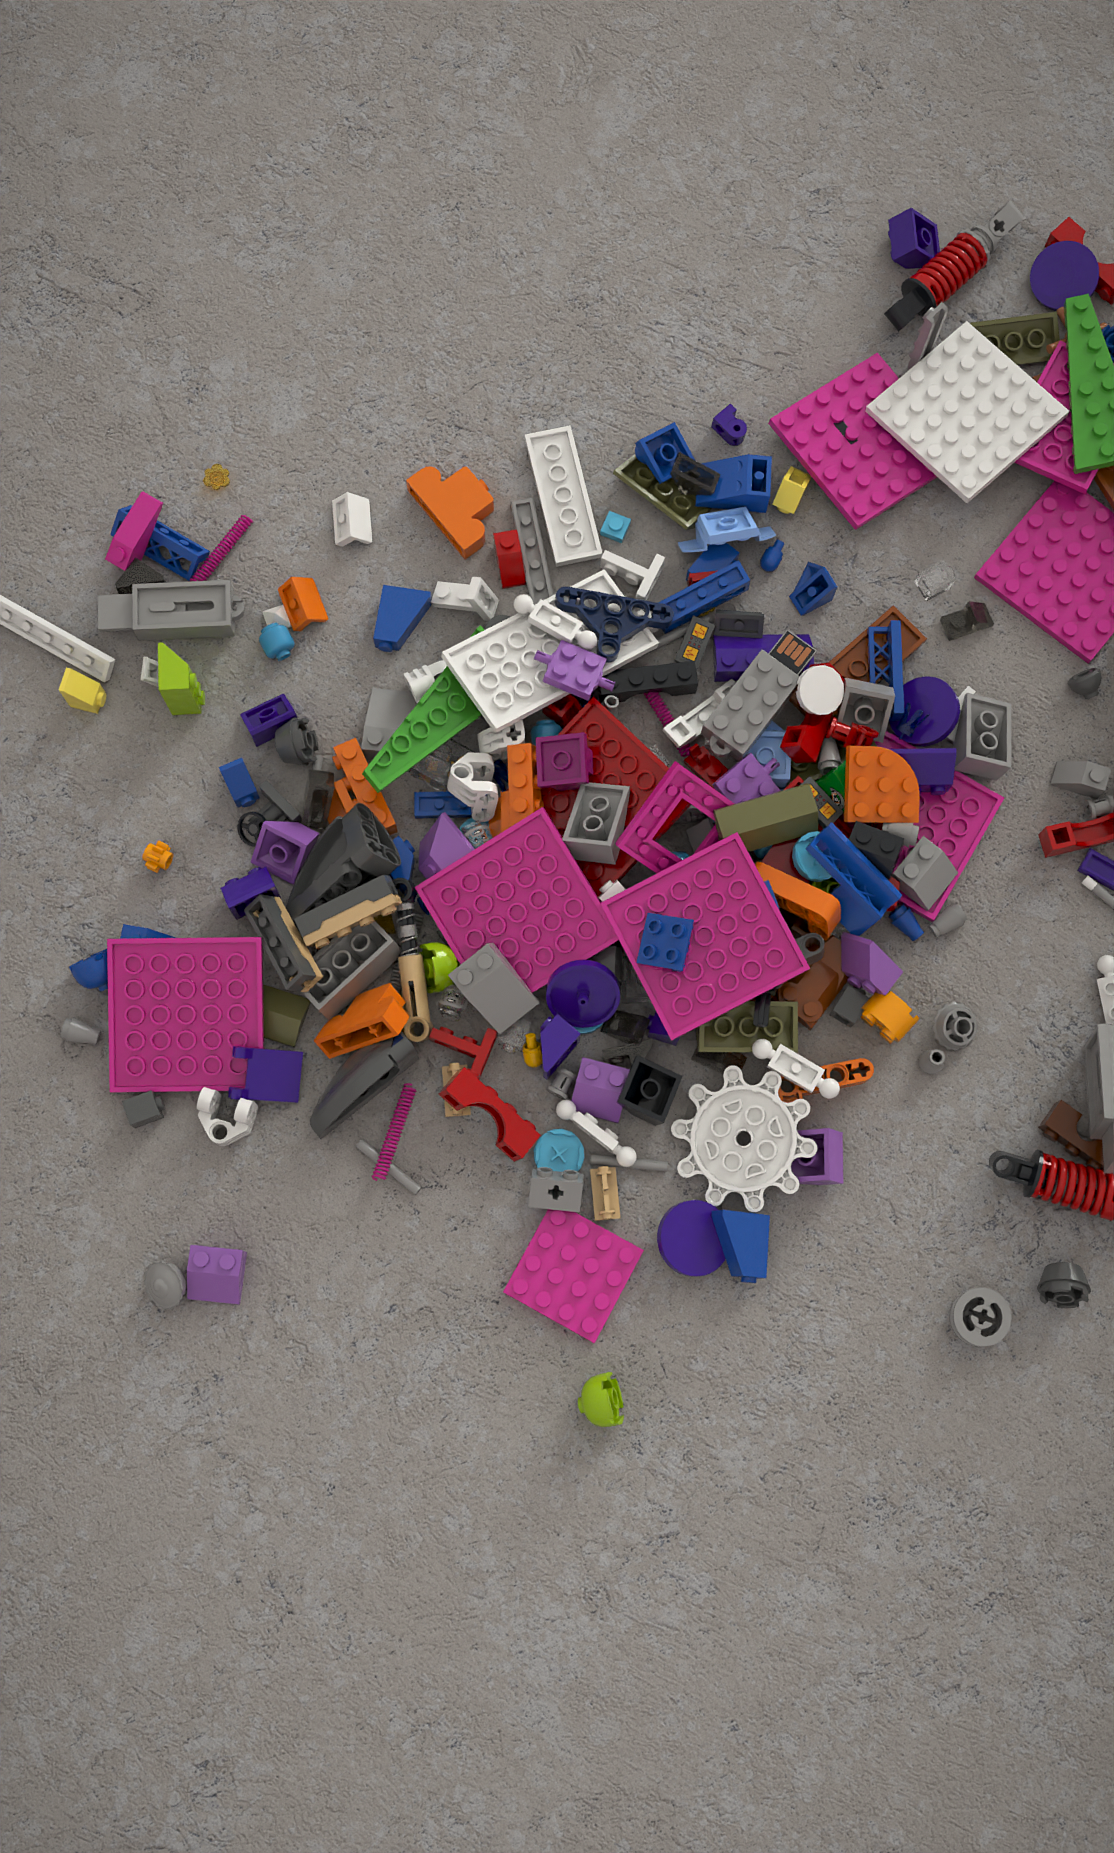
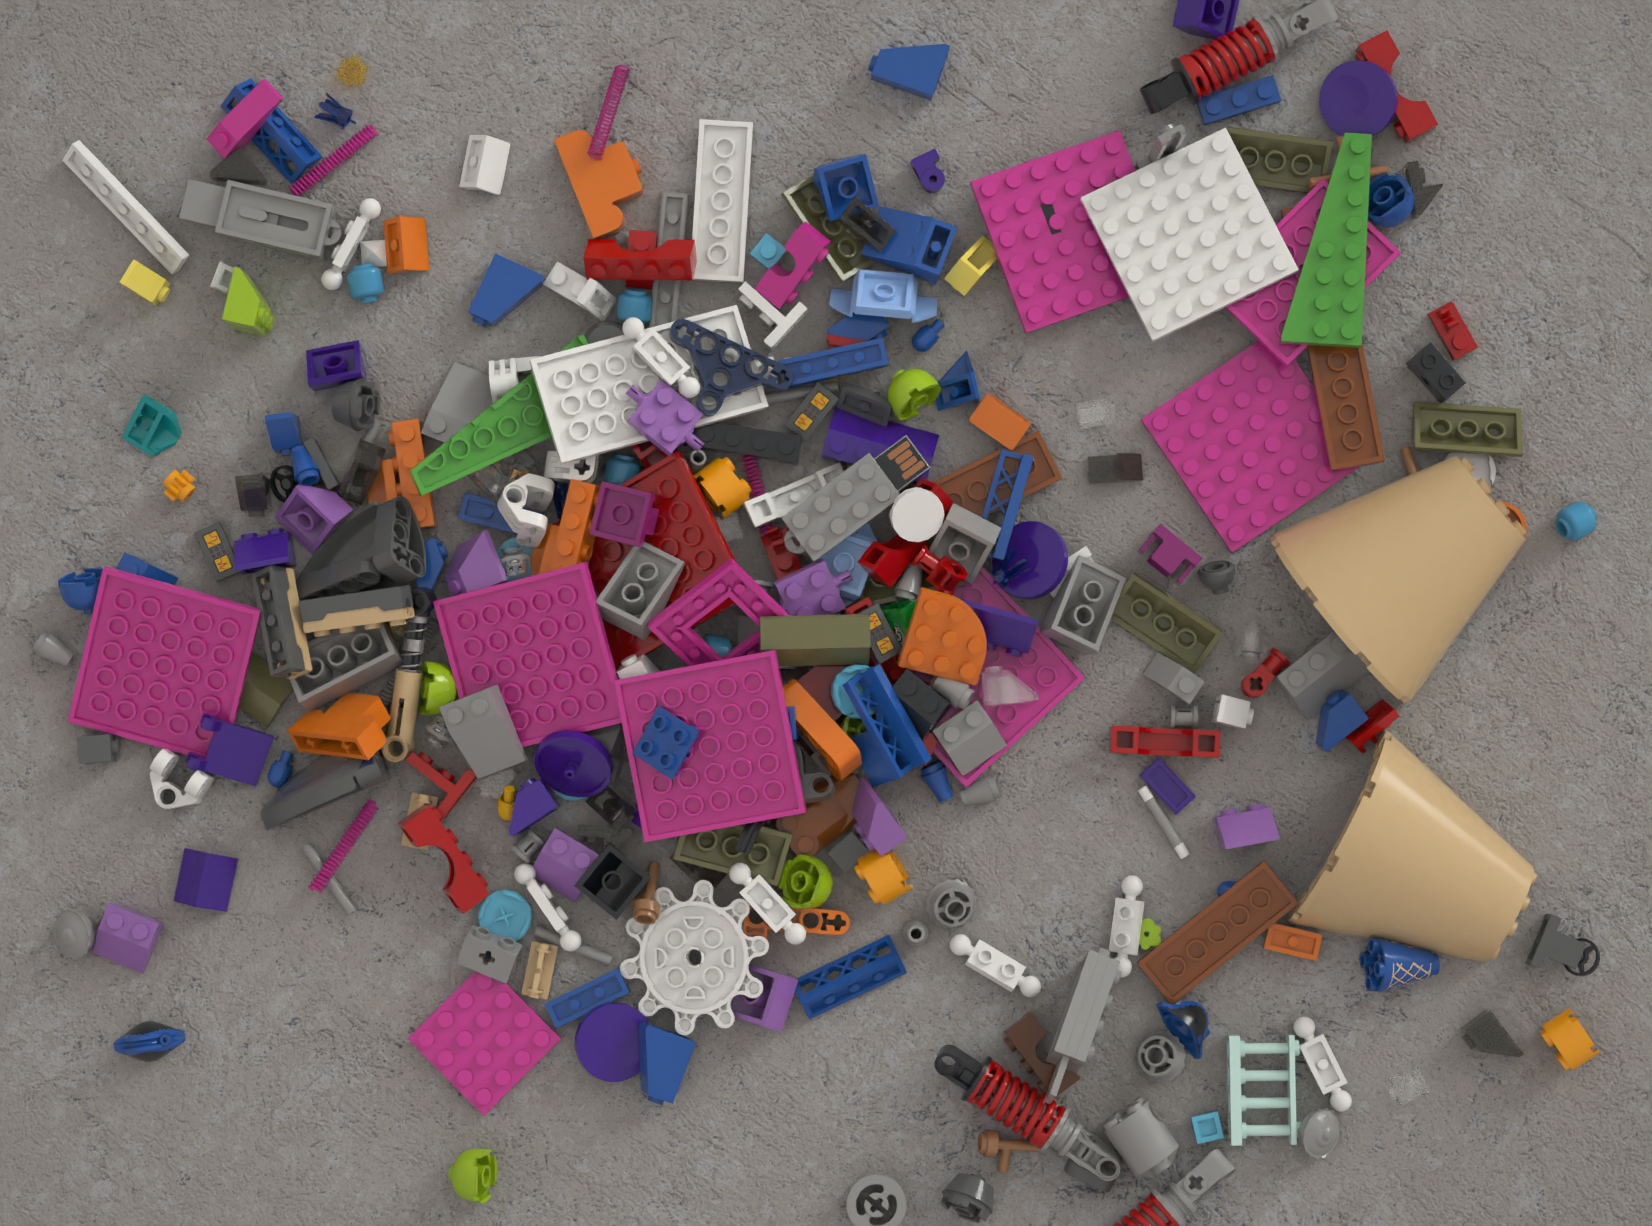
camera: 20 degrees right, 10 degrees up
(120, 813) = (152, 427): none -> teal slope
(208, 905) = (217, 551): none -> tile
(218, 512) = (340, 114): none -> clear blue piece
(226, 843) = (254, 494): none -> clear smoke slope
(255, 603) = (354, 232): none -> white plate
(262, 1367) = (149, 1041): none -> blue hat
(266, 807) = (304, 467): none -> blue cone
(274, 1200) = (205, 880): none -> dark purple slope
(317, 1080) = (280, 770): none -> blue cylinder
(447, 430) = (607, 100): none -> dark pink piece
(509, 594) = (635, 304): none -> dark azure head
(532, 550) = (670, 261): none -> red arch
(642, 719) = (722, 487): none -> light orange brick
(652, 507) = (807, 248): none -> dark pink arch
(655, 1205) = (586, 997): none -> blue plate
(685, 1105) = (644, 907): none -> medium nougat piece
(688, 350) = (910, 68): none -> blue slope
(775, 601) = (910, 391): none -> lime cylinder
(822, 1041) = (805, 882): none -> lime cylinder
(858, 606) = (1000, 421): none -> orange panel
(890, 1119) = (851, 981): none -> blue fence
(944, 819) = (1003, 688): none -> clear slope
(969, 304) = (1239, 100): none -> blue plate
(1012, 1069) = (995, 965): none -> white plate
(1041, 669) = (1170, 553): none -> magenta panel
(1056, 732) = (1165, 623): none -> olive slope
(1065, 1232) = (989, 1144): none -> medium nougat piece

